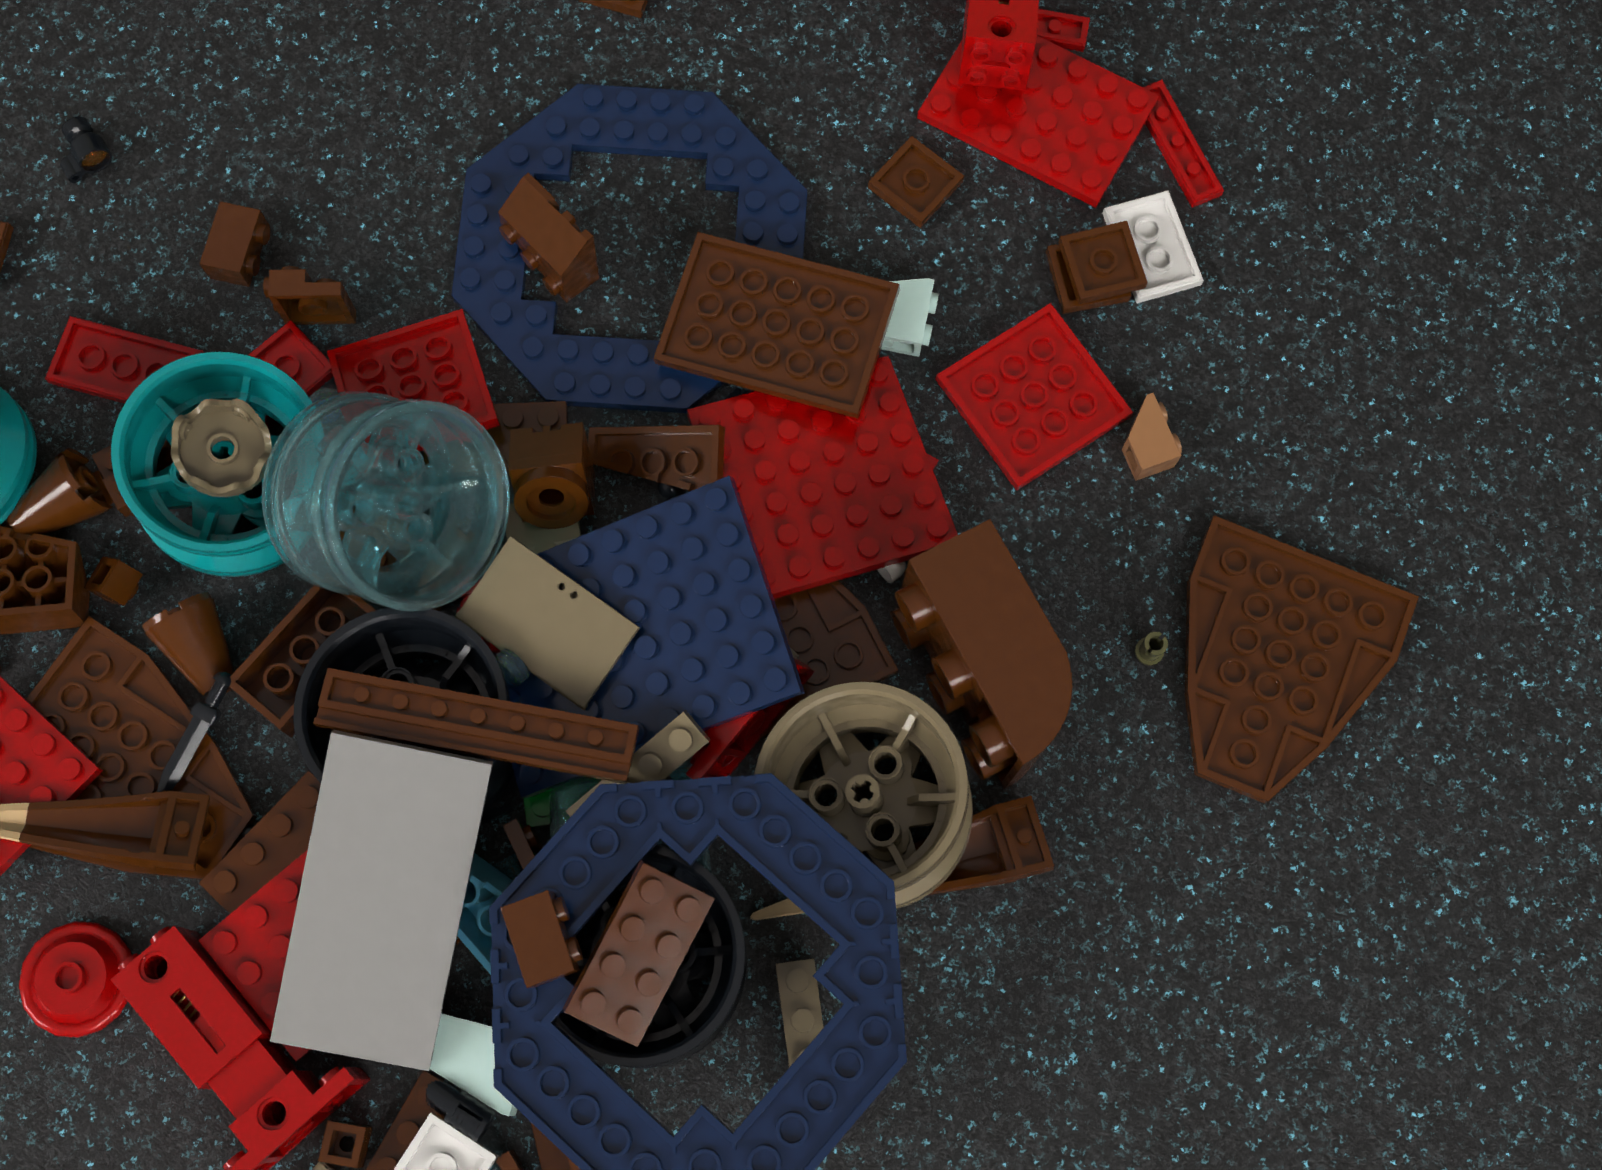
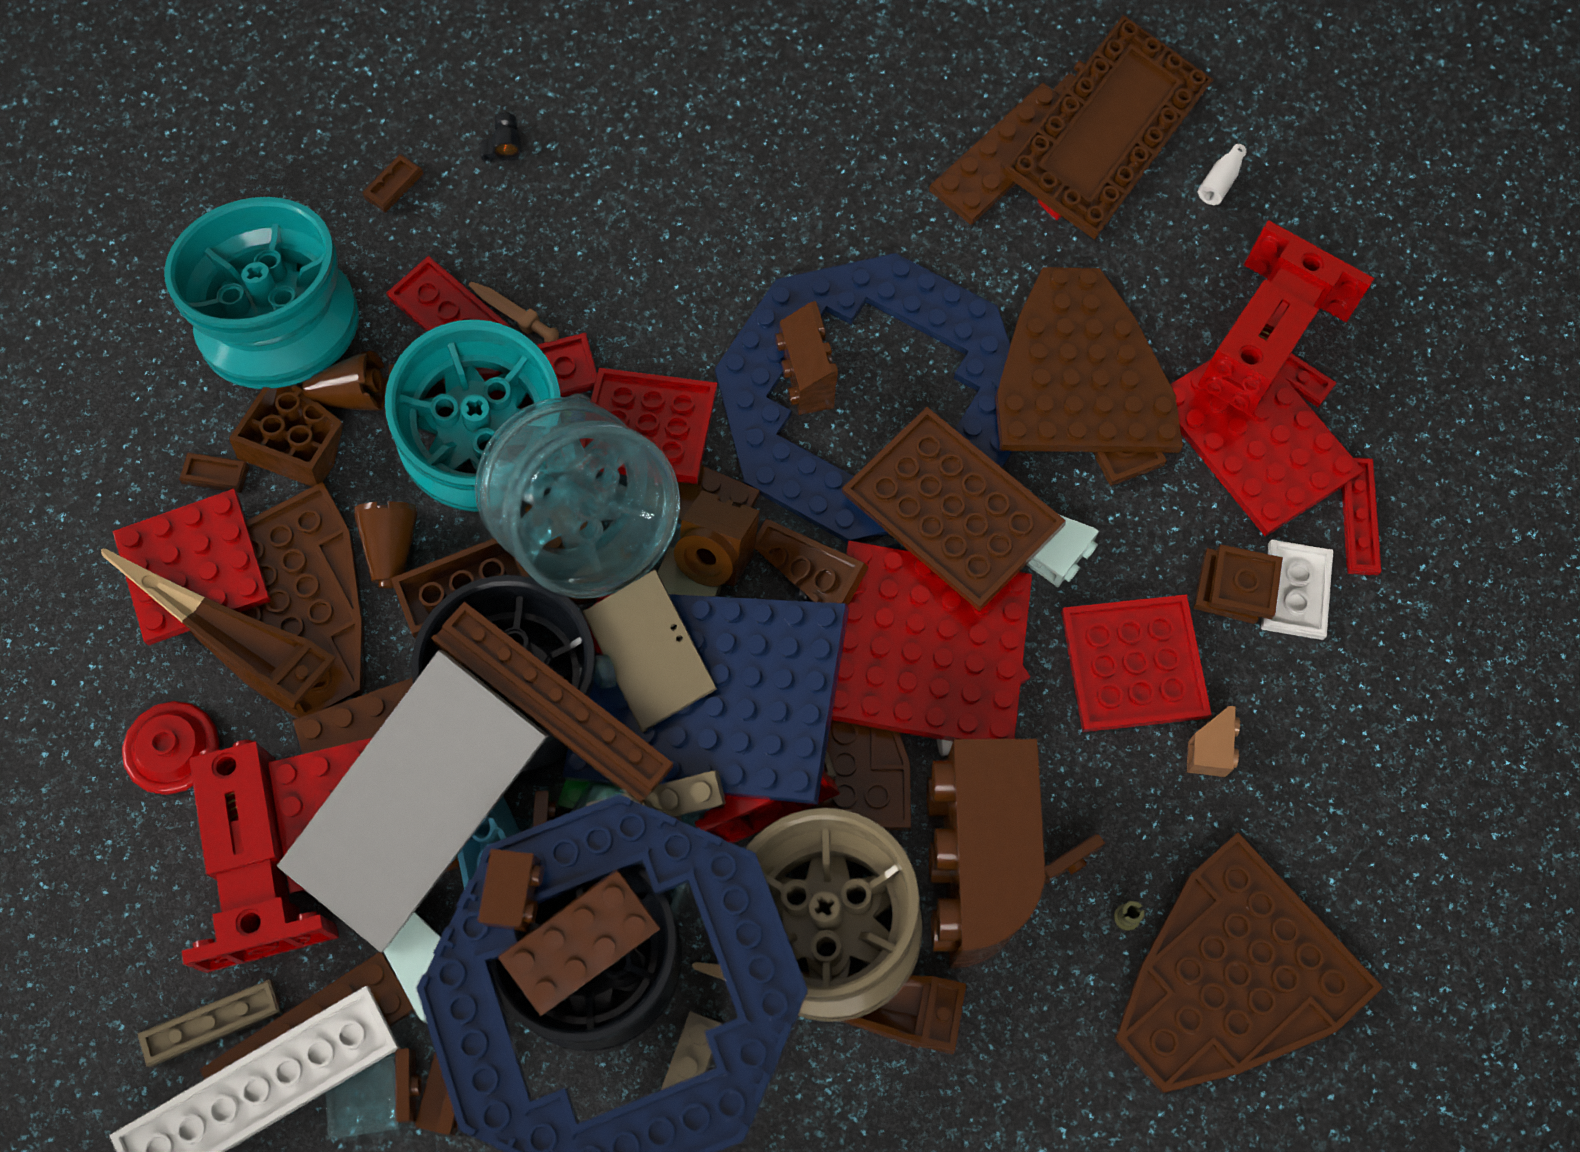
camera: 30 degrees right, 5 degrees down
(114, 581) = (354, 465): reddish brown plate -> none
(204, 714) = (365, 596): black sword -> none
(215, 422) = (467, 379): dark tan plate -> none
(219, 336) = (527, 320): none -> medium nougat sword
(235, 244) = (574, 257): reddish brown brick -> none
(307, 301) = (601, 322): reddish brown plate -> none
(332, 1144) = (282, 975): reddish brown plate -> none
(460, 1109) = (389, 996): black hinge -> none
(835, 123) = (1083, 373): none -> reddish brown piece
(1072, 621) = (1074, 858): none -> reddish brown plate

